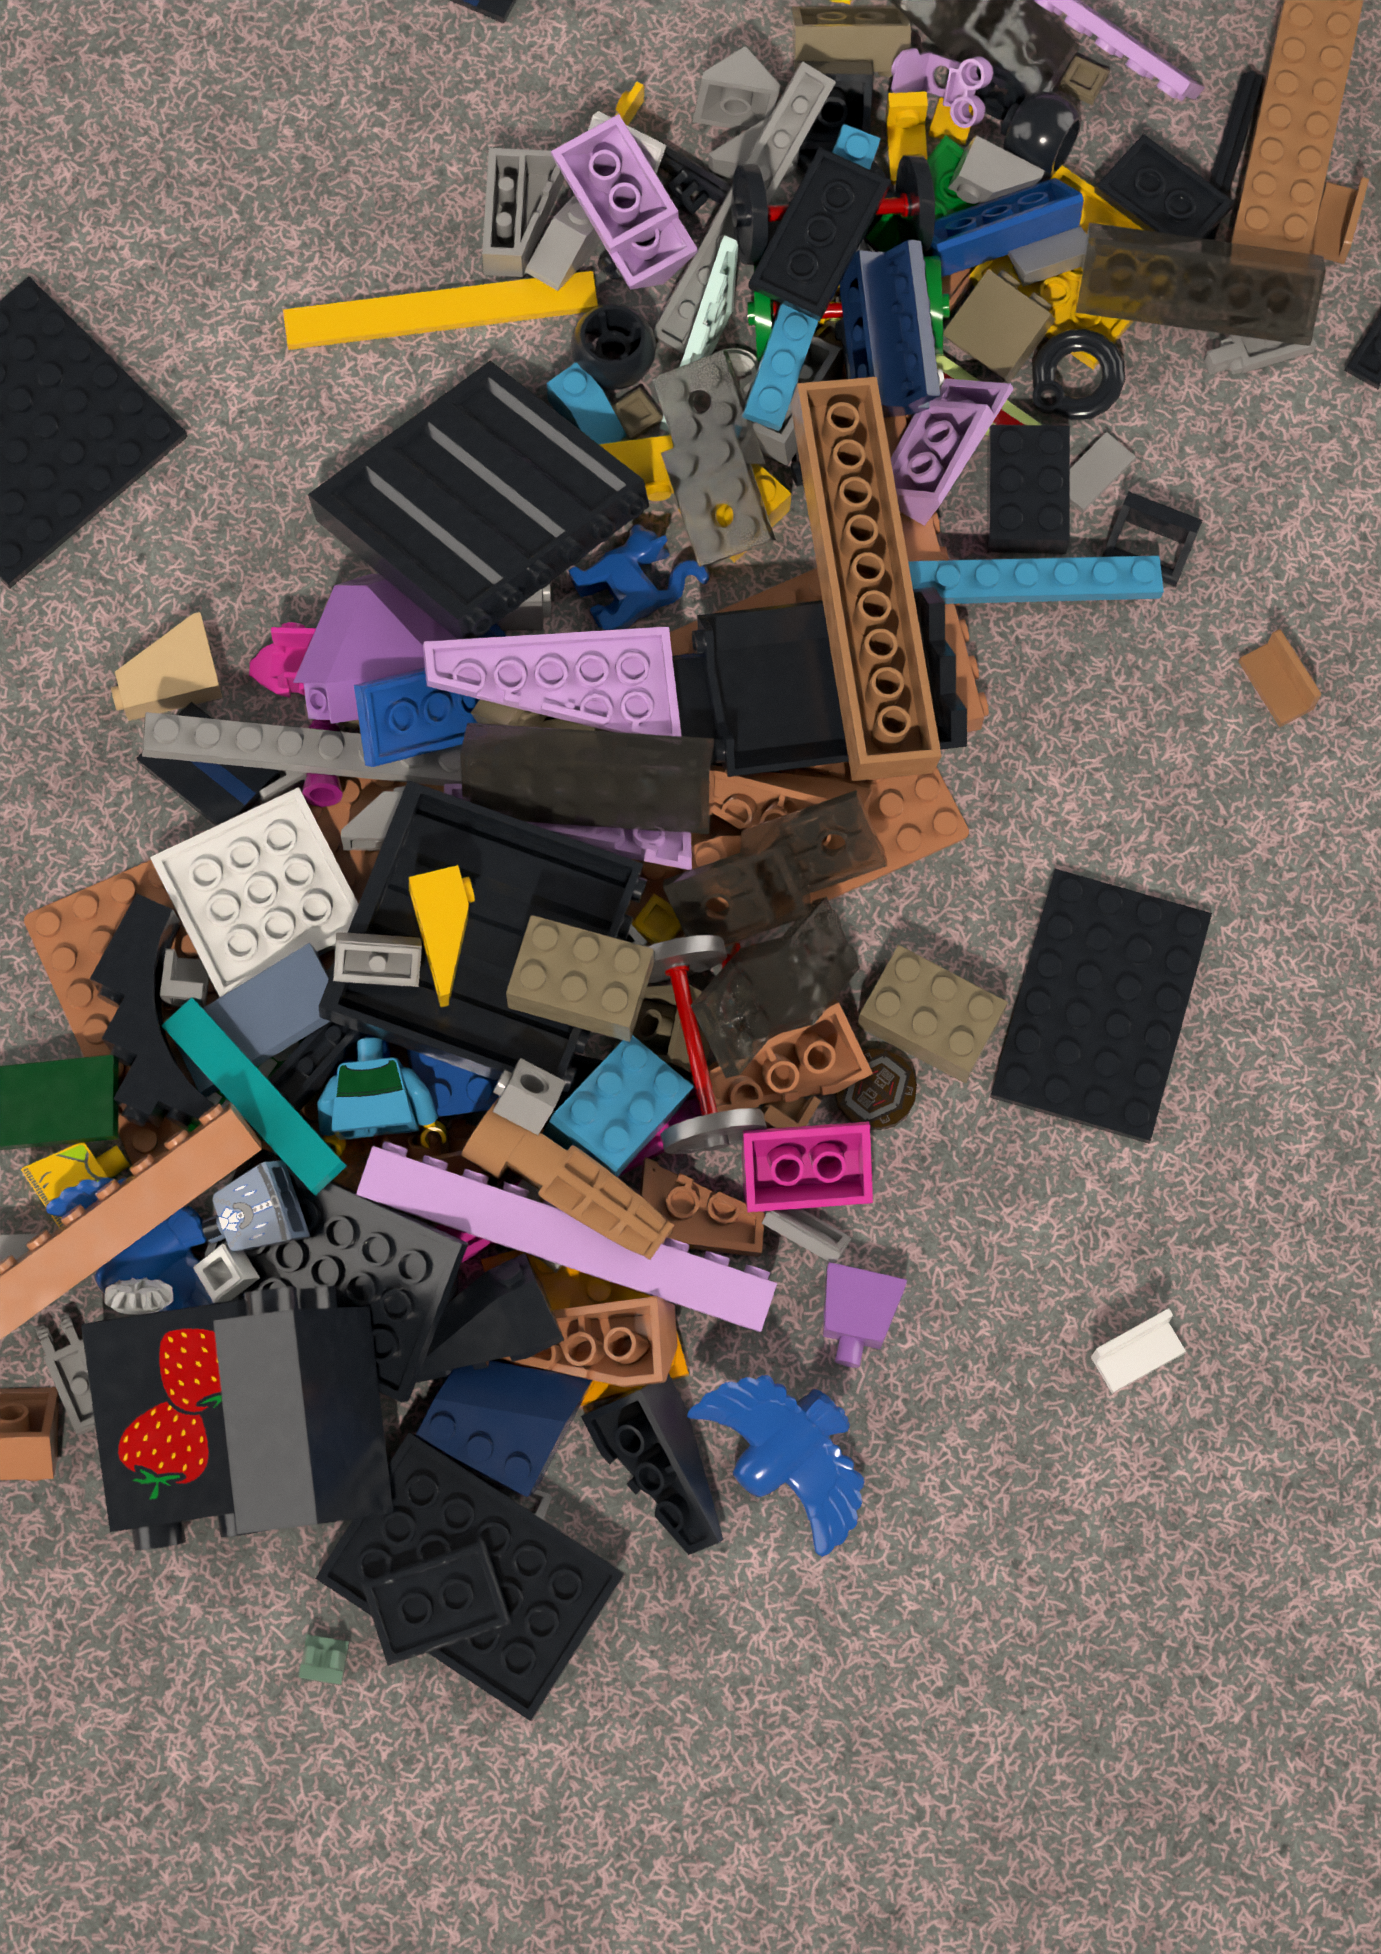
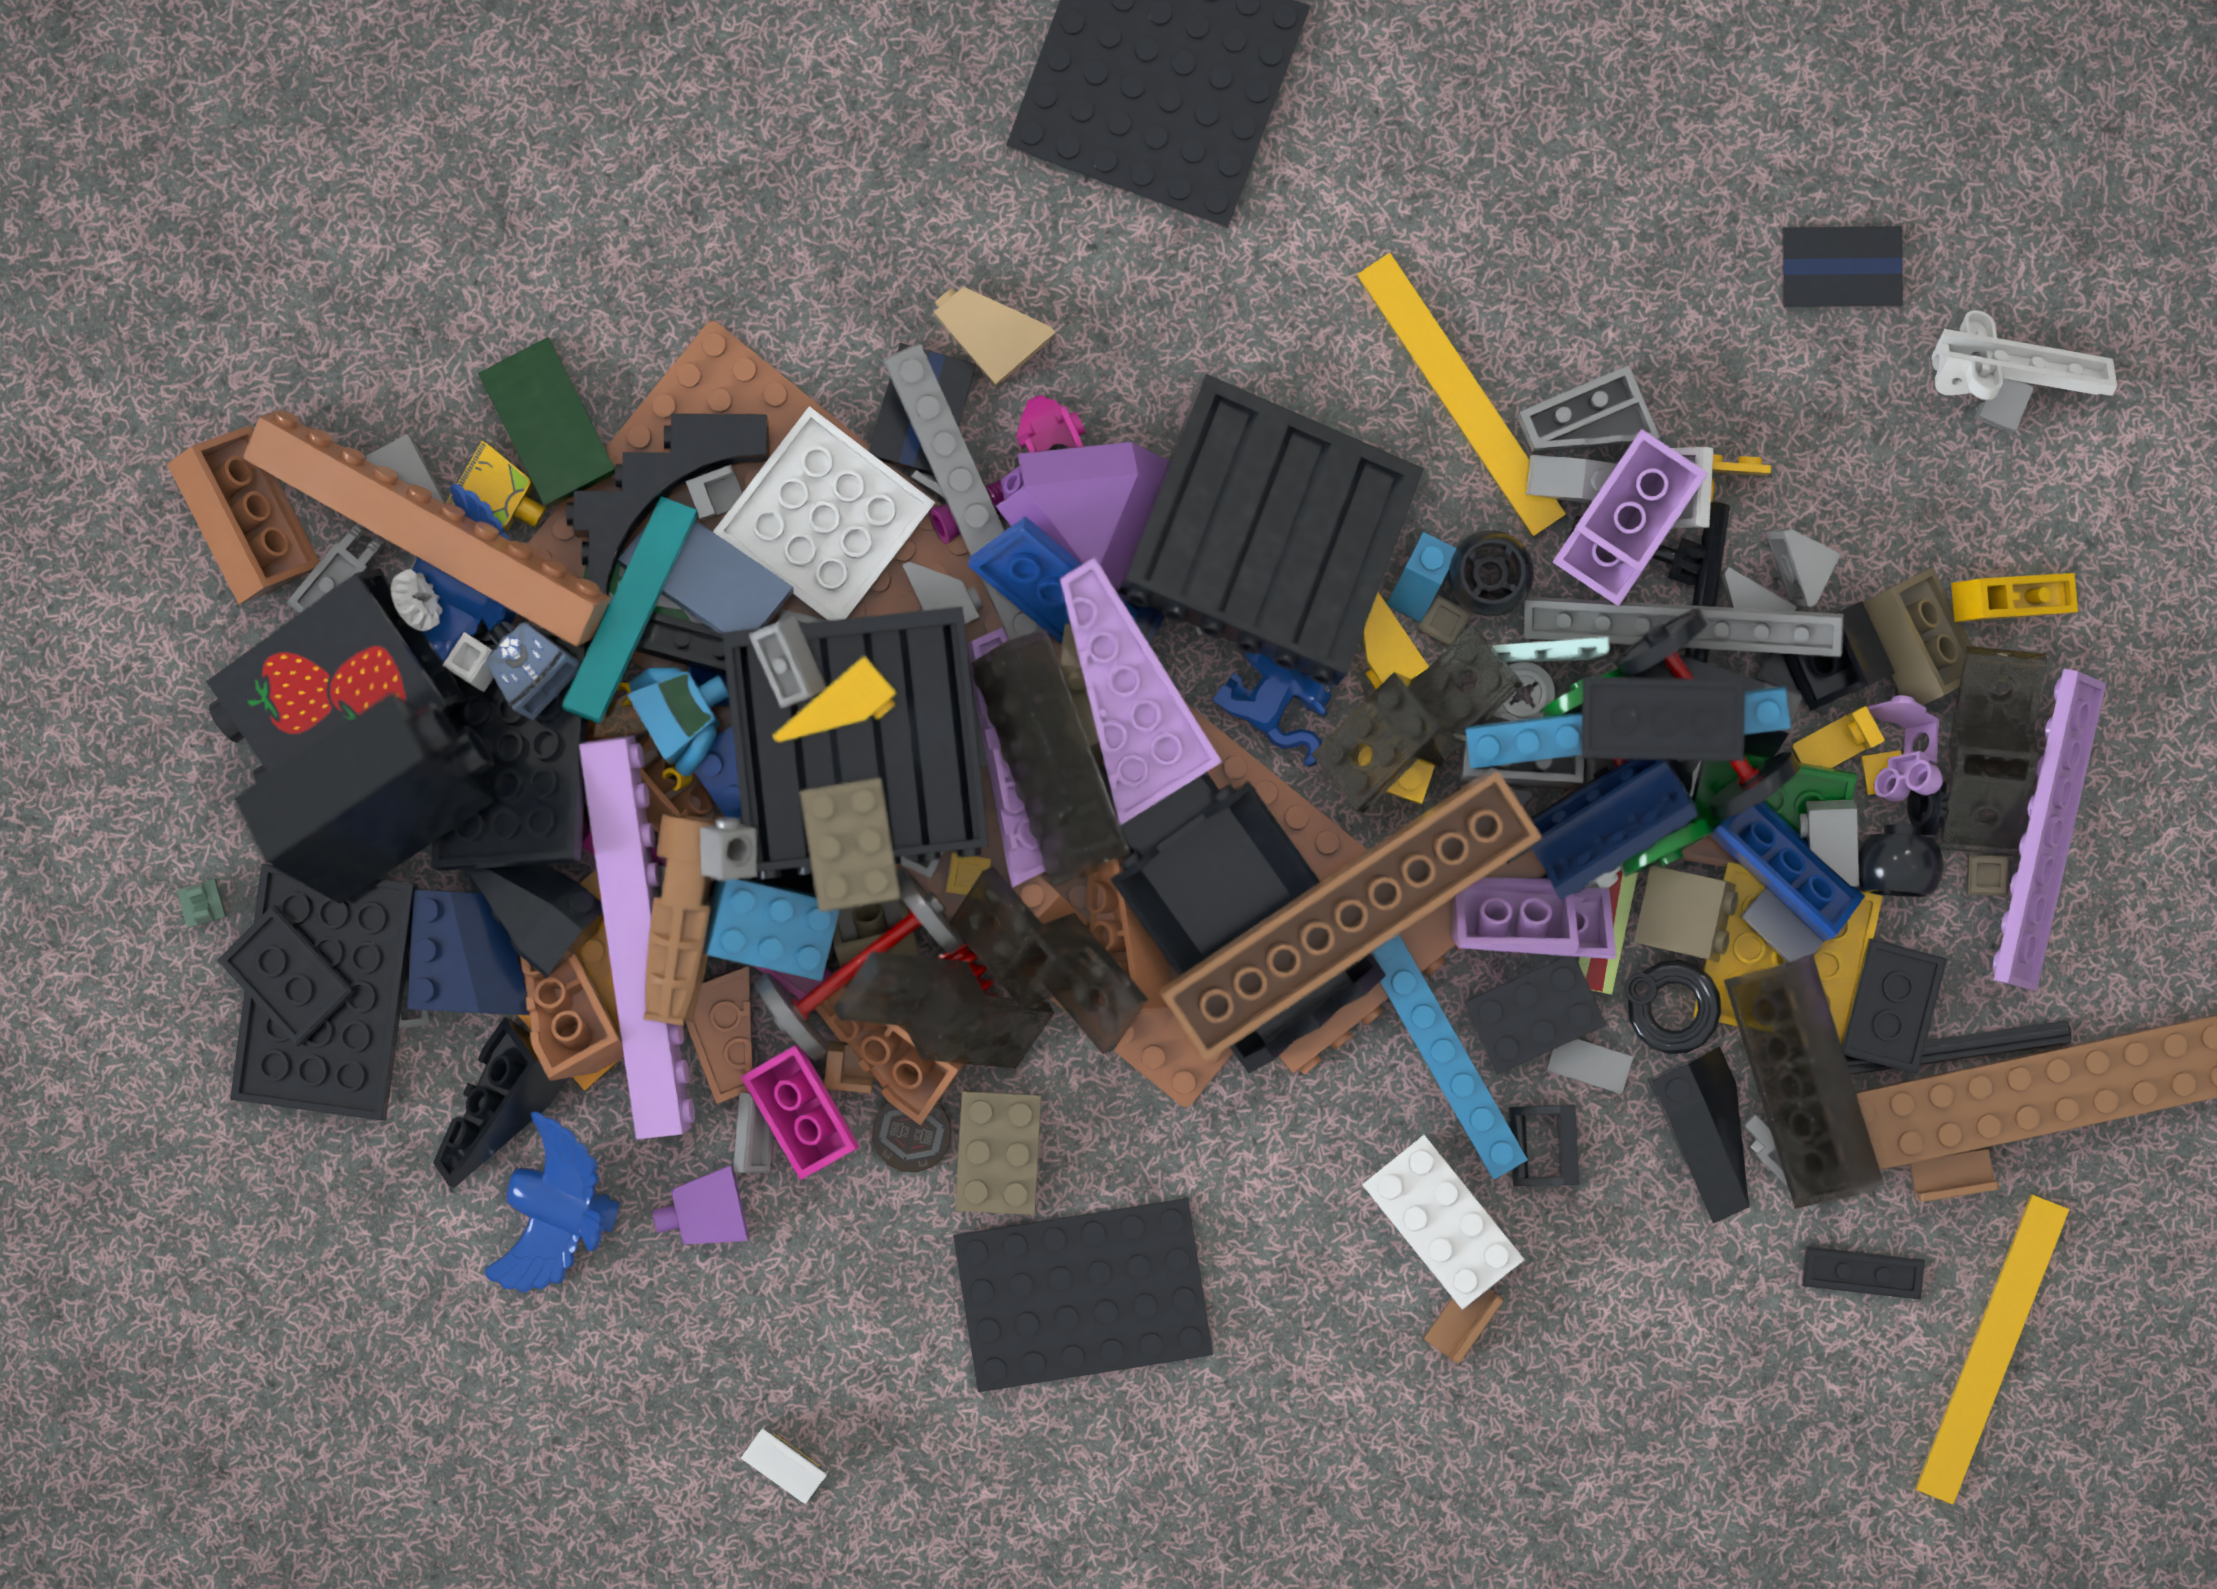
camera: 65 degrees right, 15 degrees up
(1183, 652) = (1443, 1222): none -> white brick
(1192, 402) = (1705, 1122): none -> black wedge

